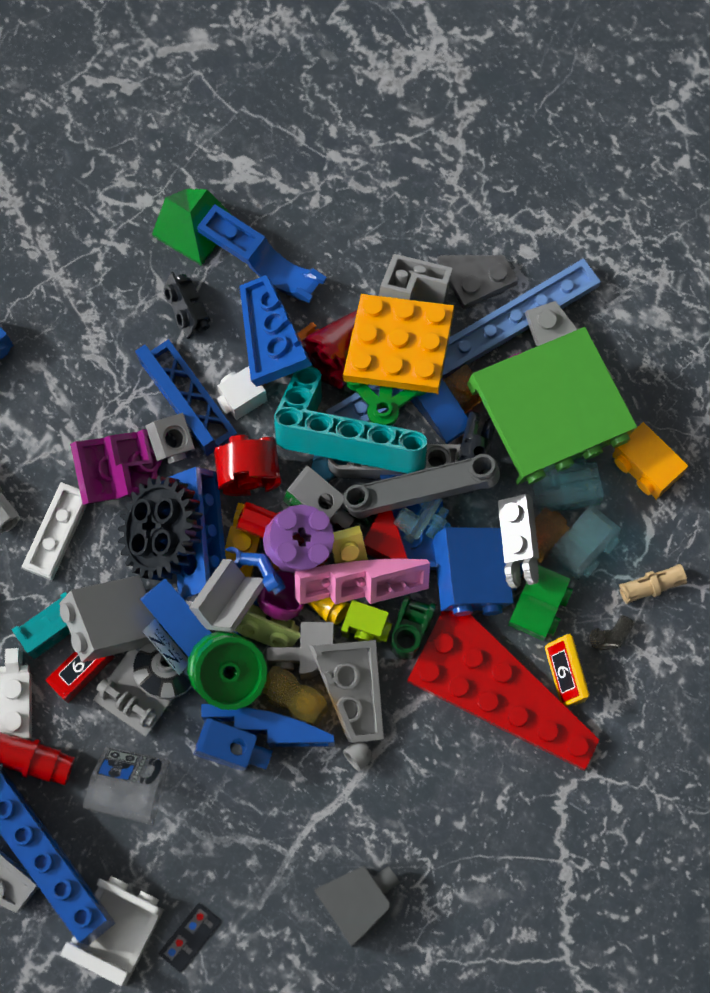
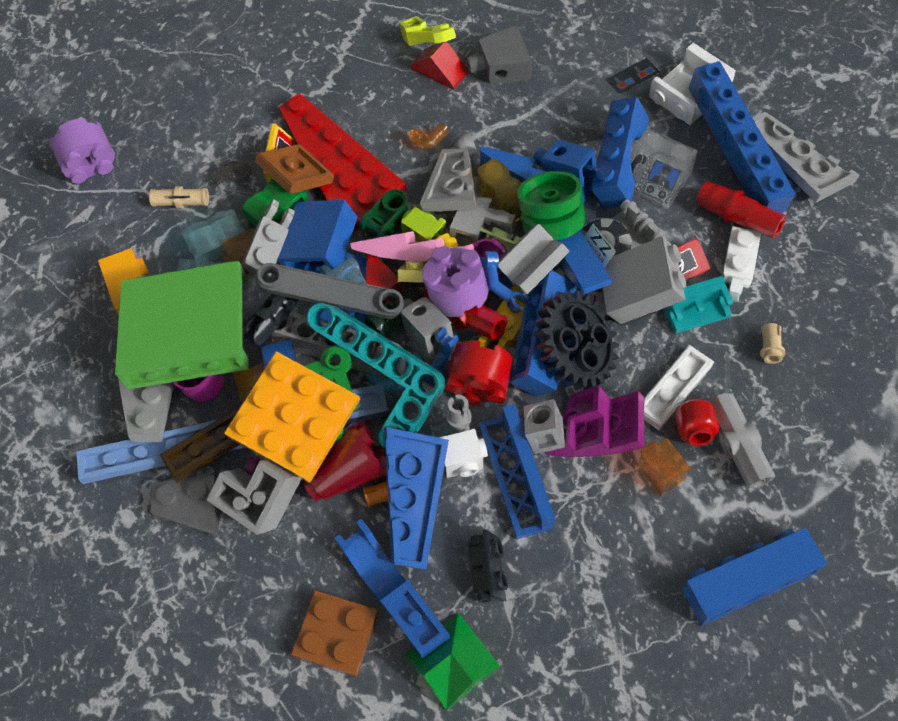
camera: 160 degrees left, 10 degrees down
(26, 493) = (697, 422): none -> red head
(49, 439) = (663, 466): none -> clear orange brick
(177, 824) = (613, 173): none -> blue arch
(252, 415) = (458, 415): none -> light grey pin
(288, 476) = (444, 354): none -> blue arm
(298, 215) = (335, 633): none -> dark orange plate
(405, 752) = (429, 140): none -> clear orange arm
(433, 869) = (441, 65): none -> red slope
(451, 892) = (416, 32): none -> neon yellow piece
(479, 322) = (200, 448): none -> dark brown tile
(533, 642) = (294, 168): none -> dark orange plate

